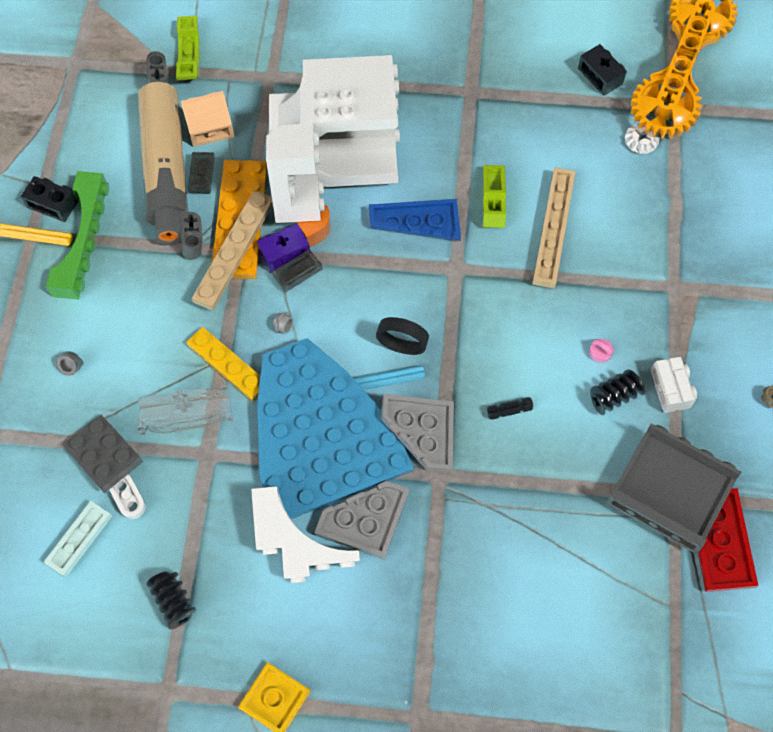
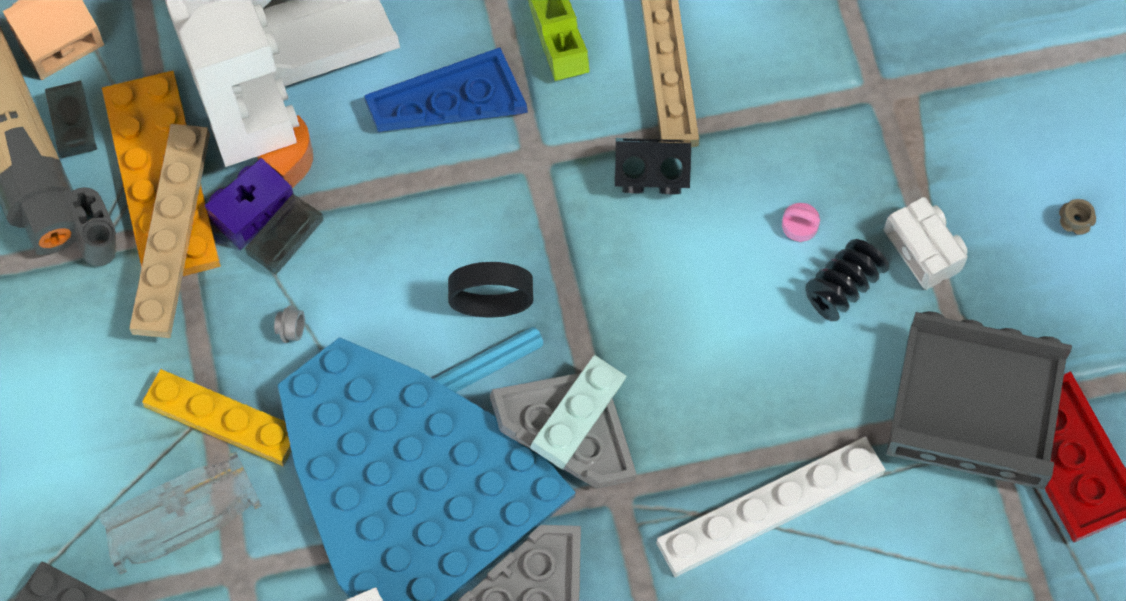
camera: 20 degrees left, 0 degrees up
(429, 422) = (578, 412): none -> light aqua plate
(510, 408) = (691, 353): black axle -> none
(524, 284) = (652, 153): none -> black brick
(527, 512) = (770, 506): none -> white plate

